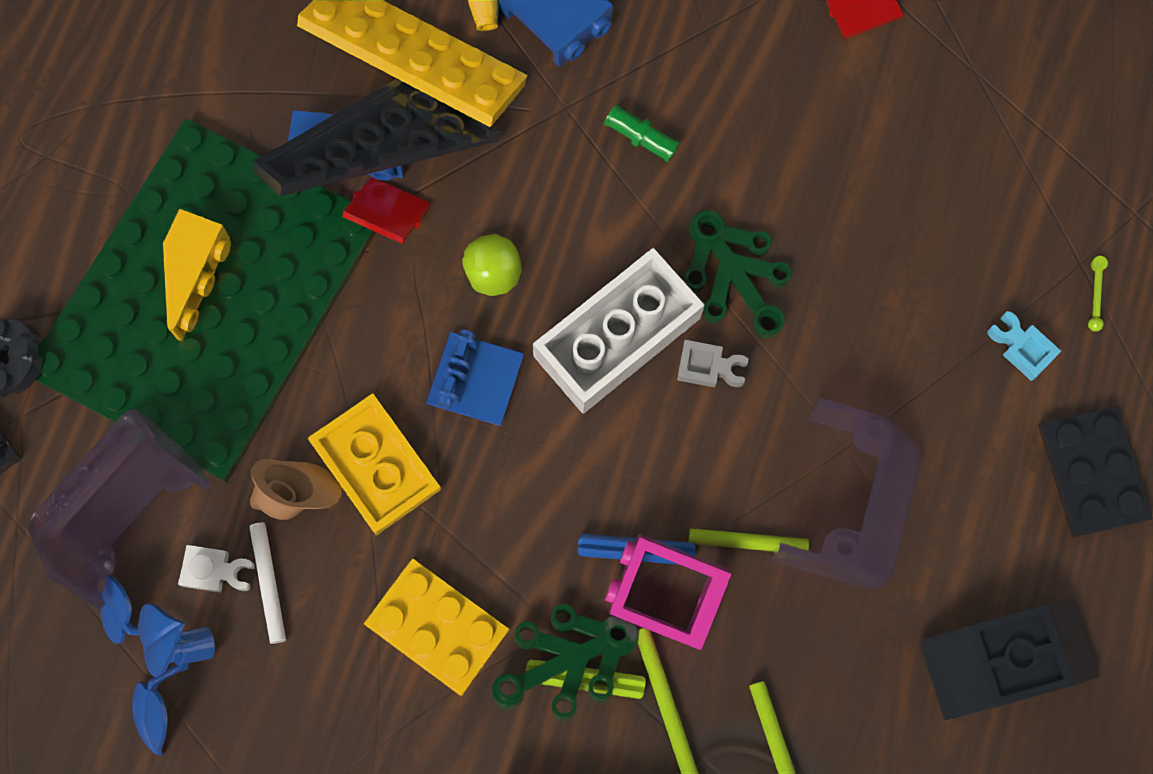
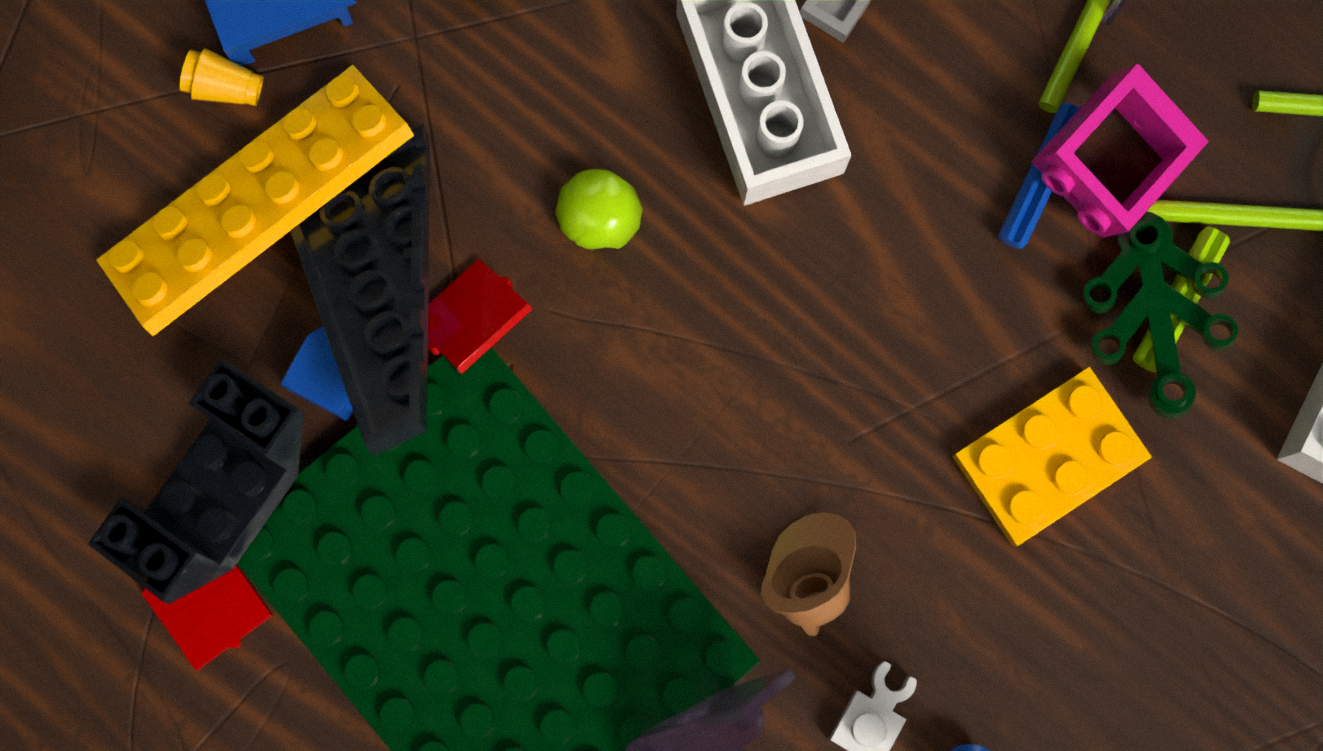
camera: 70 degrees left, 5 degrees up
(143, 128) = (212, 616): none -> red piece
(190, 259) = (443, 597): yellow slope -> none
(207, 102) = (214, 495): none -> black slope
(267, 583) = (916, 652): white bar -> none
(374, 464) = (813, 457): yellow plate -> none
(475, 378) = (745, 289): blue hinge -> none

